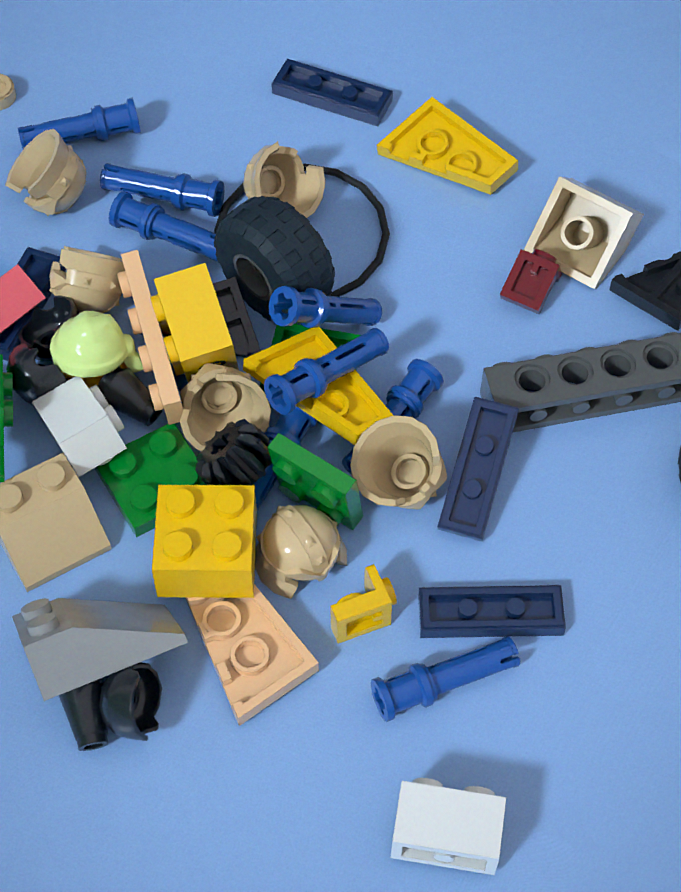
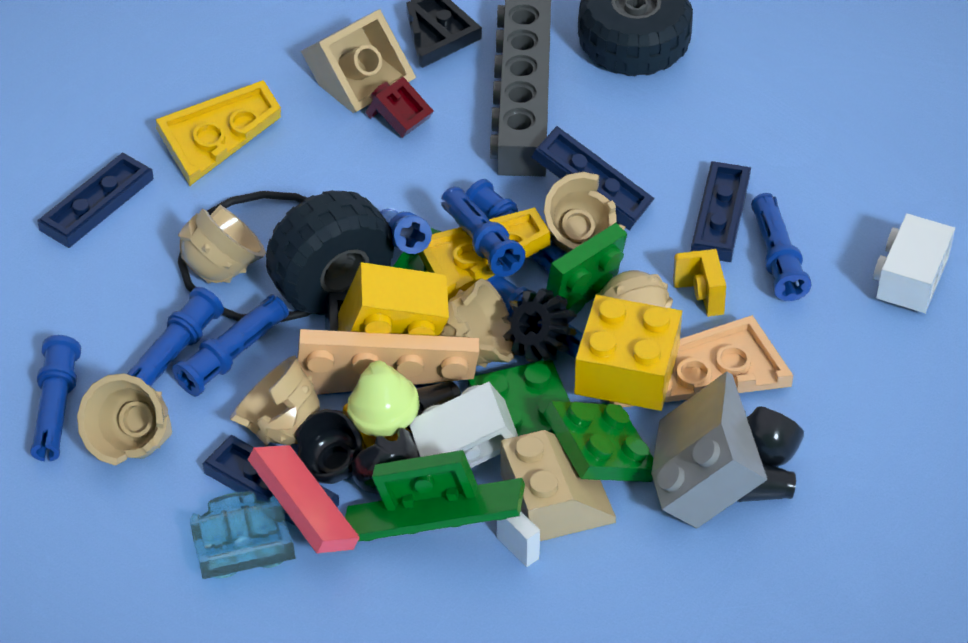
camera: 75 degrees left, 10 degrees down
(100, 546) = (600, 441): none -> green plate

